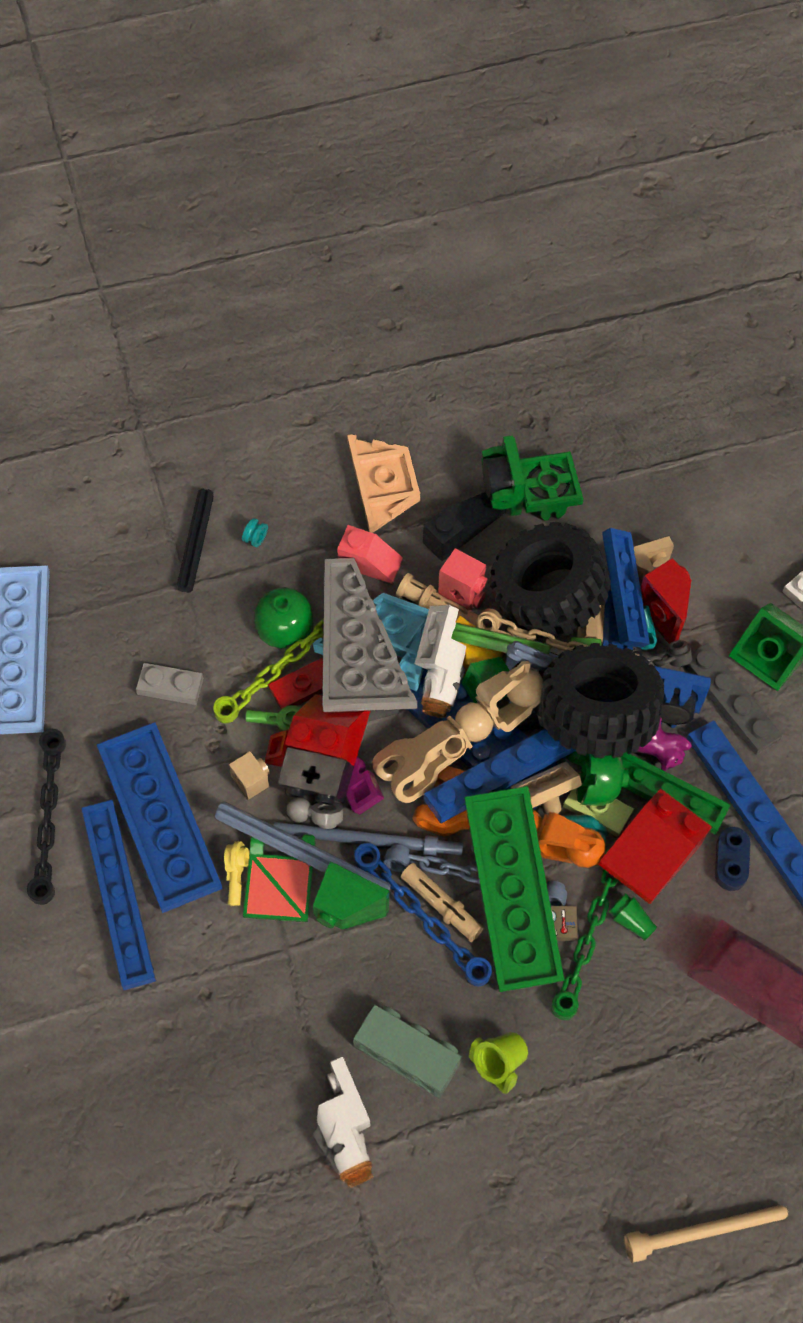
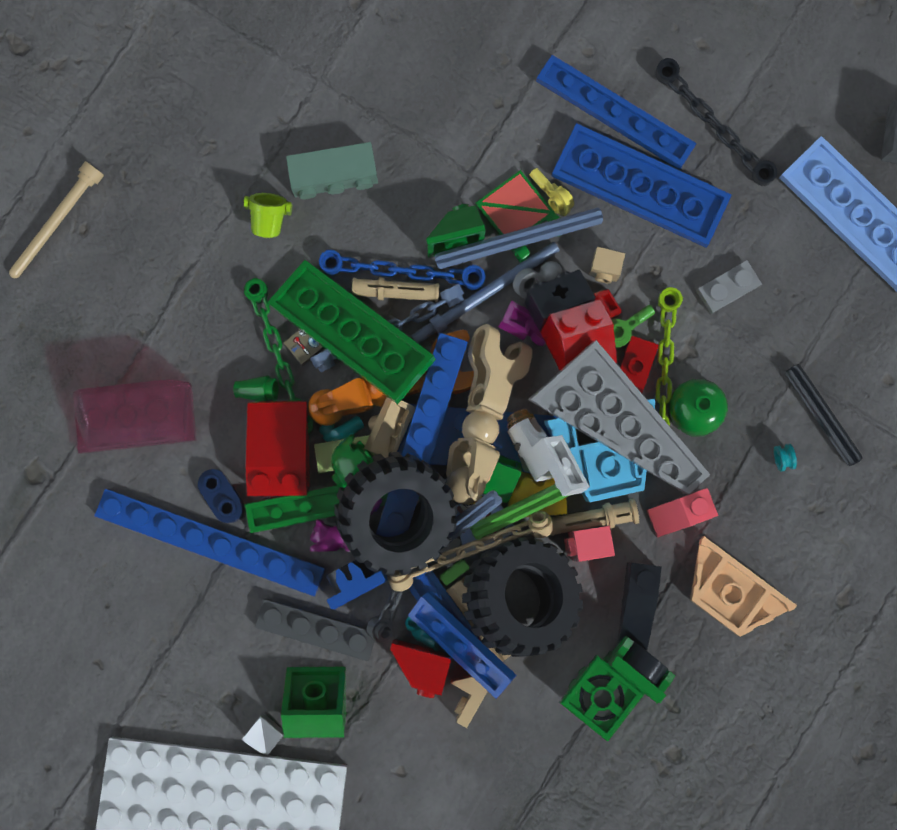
camera: 140 degrees right, 20 degrees up
(339, 1128) = (335, 91): white plate -> none

